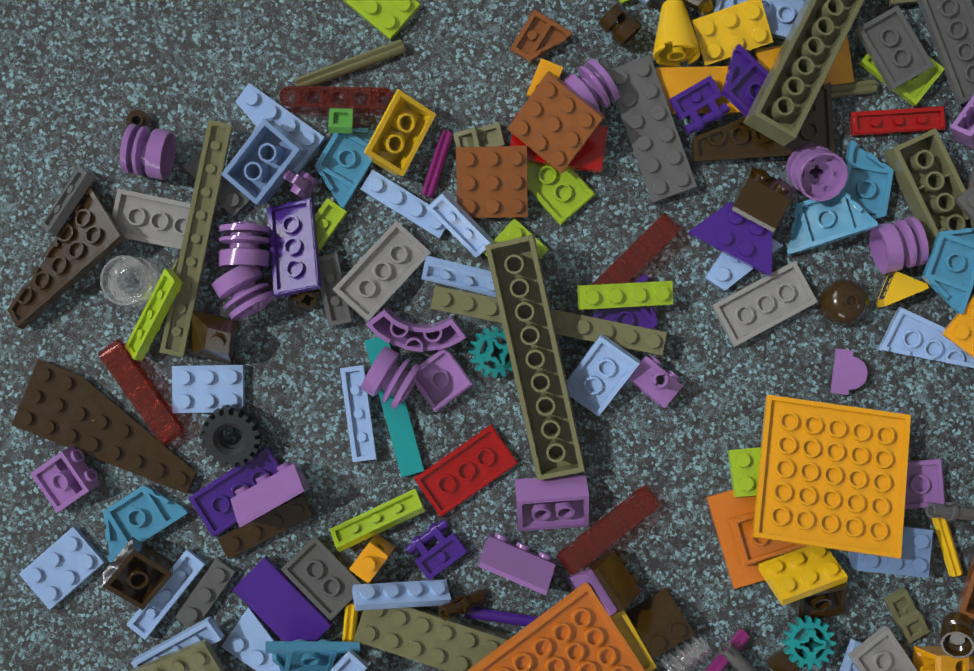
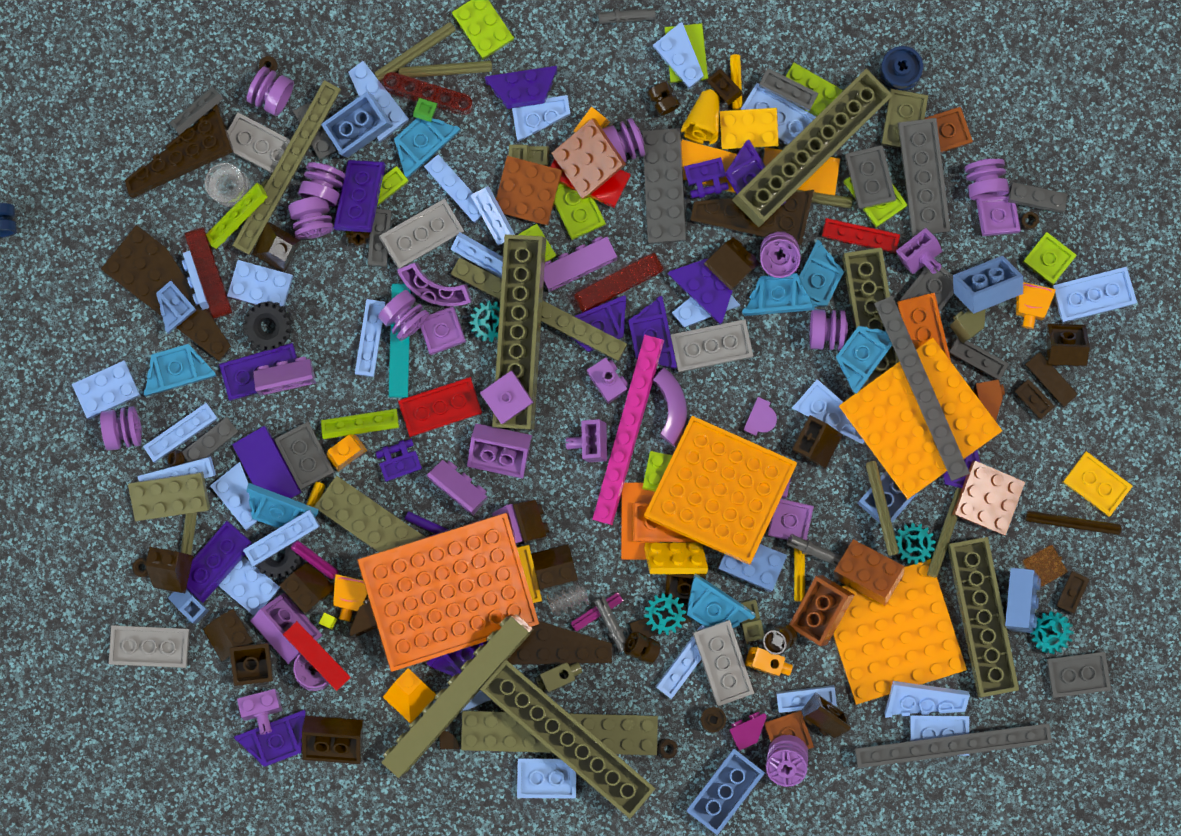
camera: 25 degrees right, 5 degrees down
(65, 478) = (130, 321): medium lavender plate -> none
(91, 614) = (116, 428): none -> medium lavender wheel
(111, 446) = (173, 306): none -> medium blue wing
(126, 408) = (194, 281): none -> light blue plate
(137, 573) = (164, 408): dark brown brick -> none
(170, 626) = (175, 458): none -> dark brown plate
(266, 526) = (272, 404): dark brown plate -> none
(302, 184) = (380, 150): medium lavender plate -> none
(308, 53) = (416, 50): none -> olive axle
(399, 134) = (466, 133): yellow slope -> none
(400, 594) = (361, 483): light blue plate -> none
(437, 163) = (490, 164): magenta axle -> none
(448, 59) = (523, 87): none -> dark purple wing
(461, 604) = (405, 506): dark brown pin -> none
(477, 87) = (534, 118): none -> light blue wing
(538, 37) = (598, 90): dark orange wing -> none
(545, 442) = (506, 397): none -> medium lavender plate
(579, 251) = (579, 263): none -> medium lavender brick
(601, 374) = (566, 362): light blue plate -> none
(608, 529) = (537, 484): clear red beam -> none
(625, 295) = (603, 306): lime plate -> none
(659, 460) = (592, 441): none -> medium lavender brick
(692, 313) = (653, 322): none -> dark purple wing
(697, 433) = (628, 429): none -> dark pink plate
(744, 388) = (676, 406): none -> medium lavender brick
(843, 302) = (775, 363): dark brown cylinder -> none
(860, 615) = (711, 605): none -> dark azure wing
(897, 287) = (821, 364): yellow slope -> none
(921, 381) = (817, 442): none -> dark brown slope

